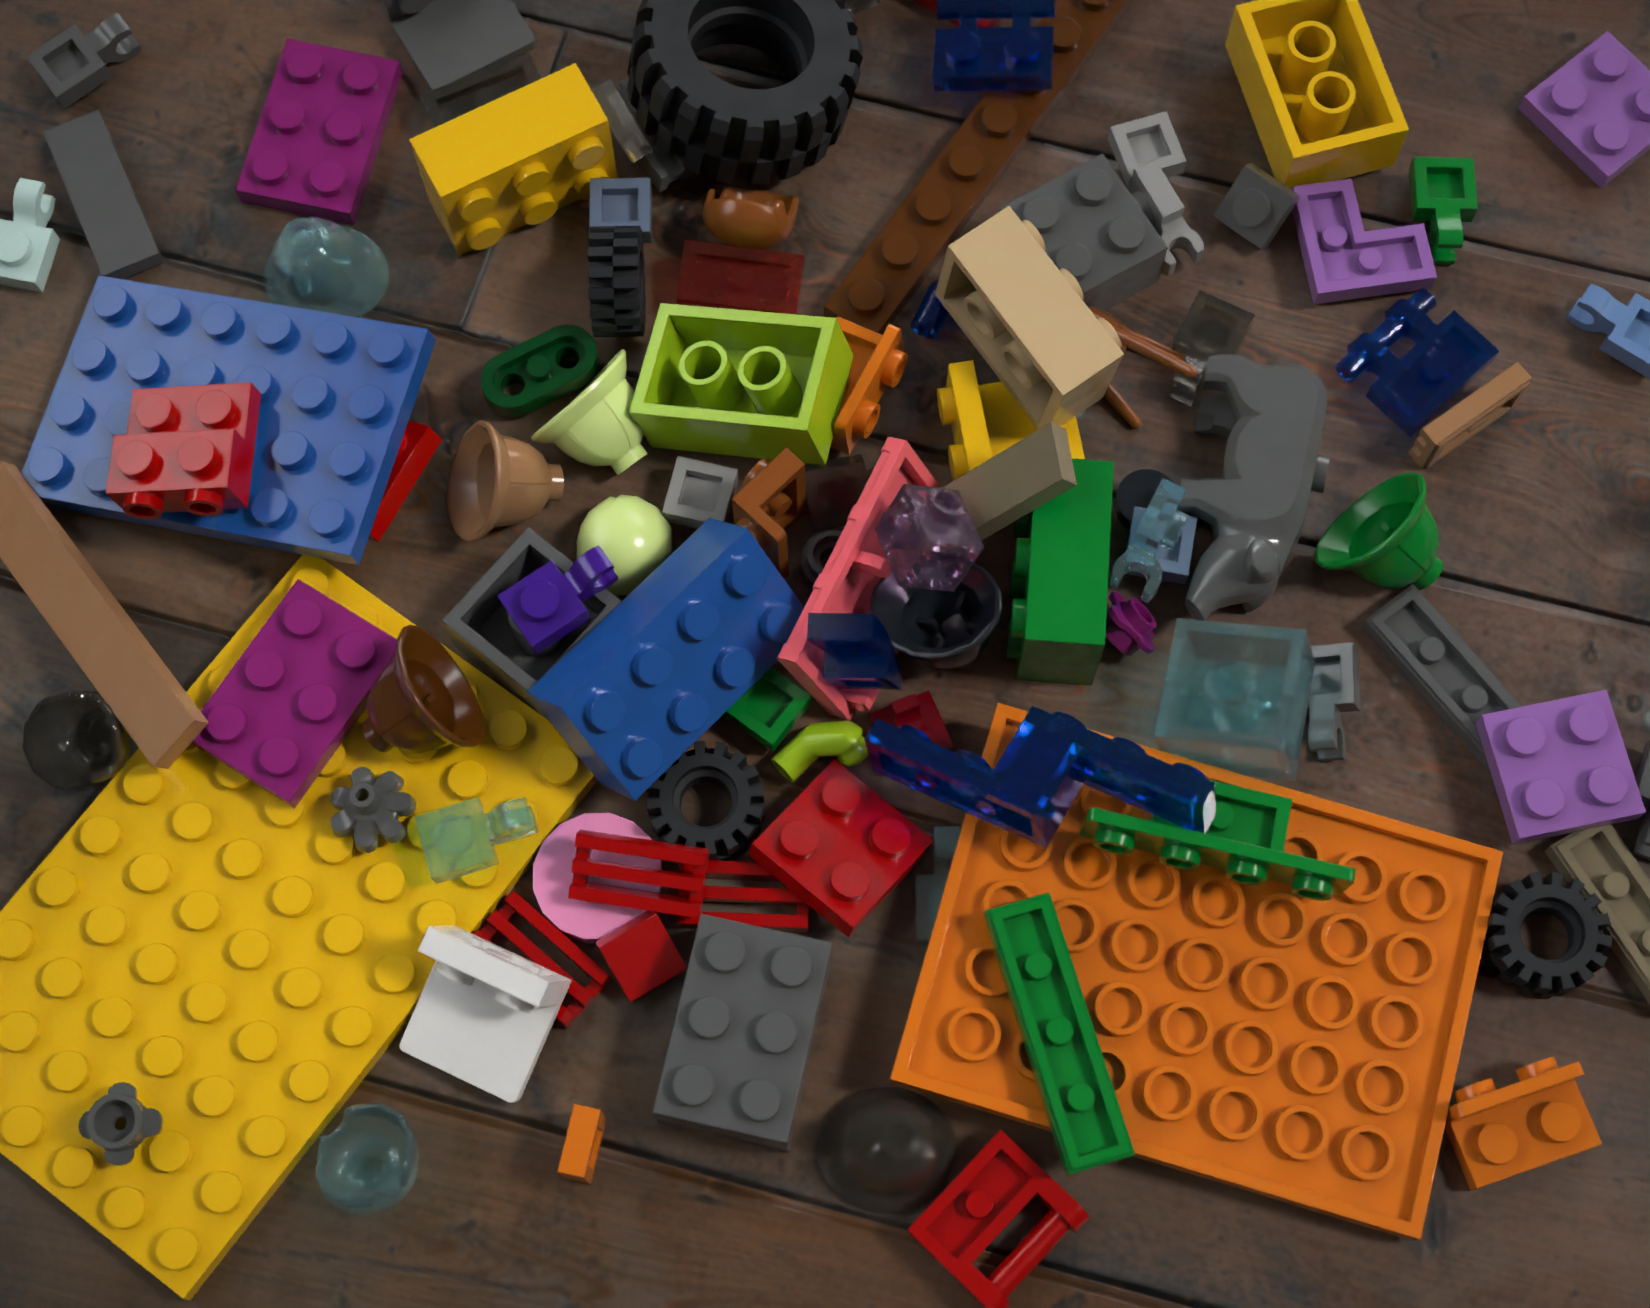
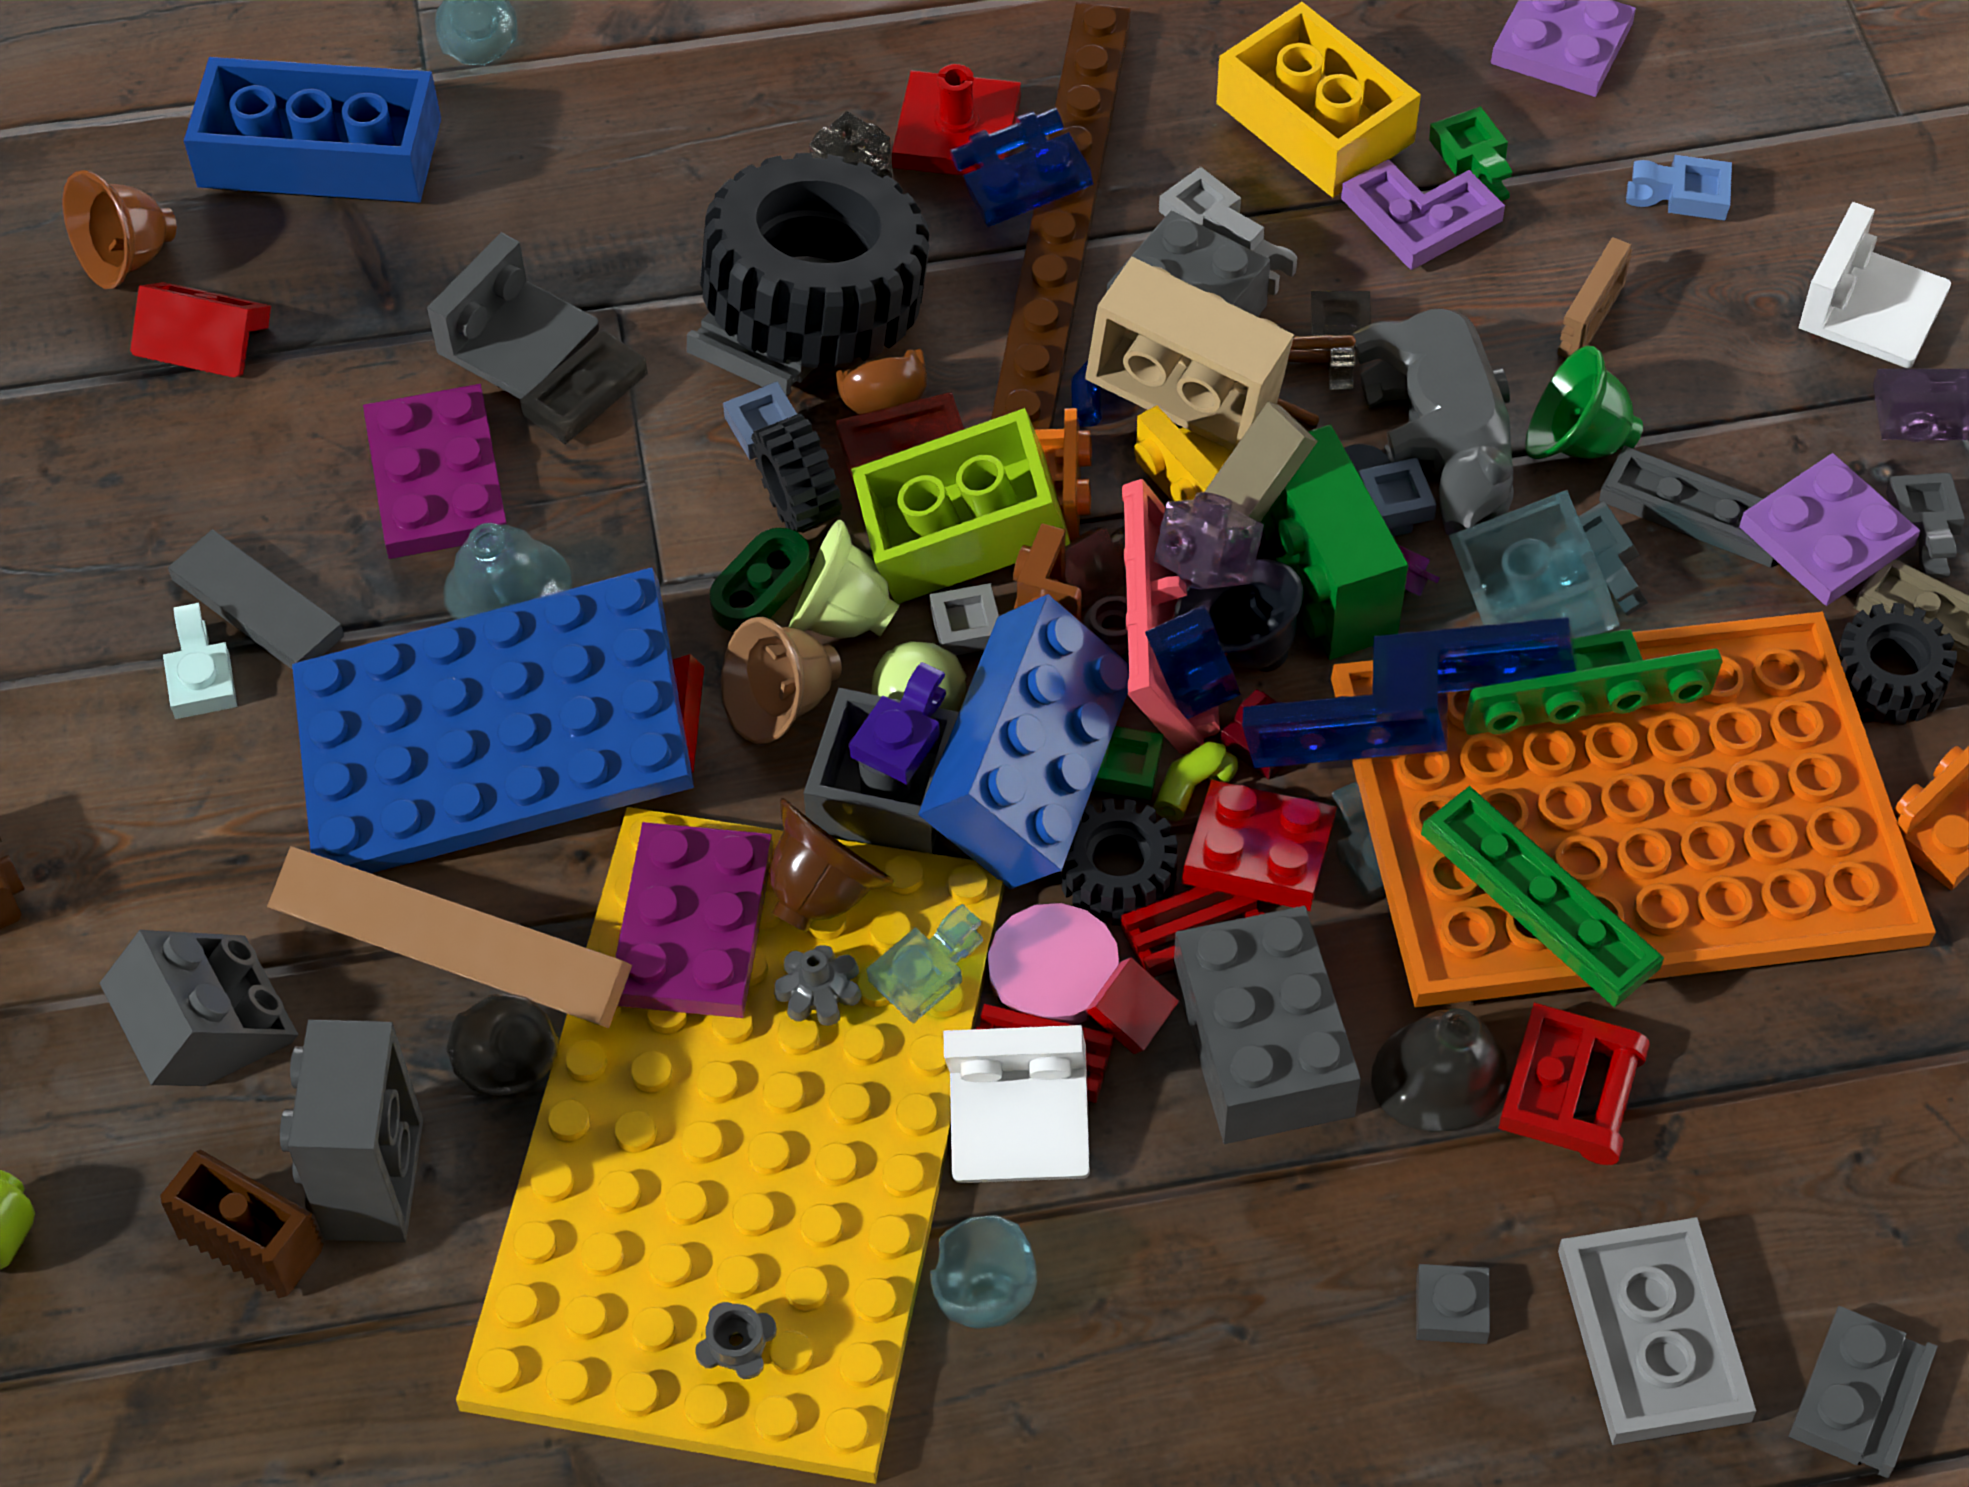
camera: 25 degrees left, 15 degrees down
(76, 63) = (171, 498): dark grey plate -> none
(185, 450) = (481, 752): plate -> none
(515, 159) = (646, 412): yellow brick -> none
(582, 1144) = (1171, 1178): orange tile -> none
(622, 121) = (730, 340): clear tile -> none
(632, 898) = (1149, 917): red tile -> none
(1158, 528) = (1392, 470): clear light blue plate -> none
(1256, 205) = (1320, 210): dark grey plate -> none
(1428, 374) = (1540, 284): clear blue plate -> none

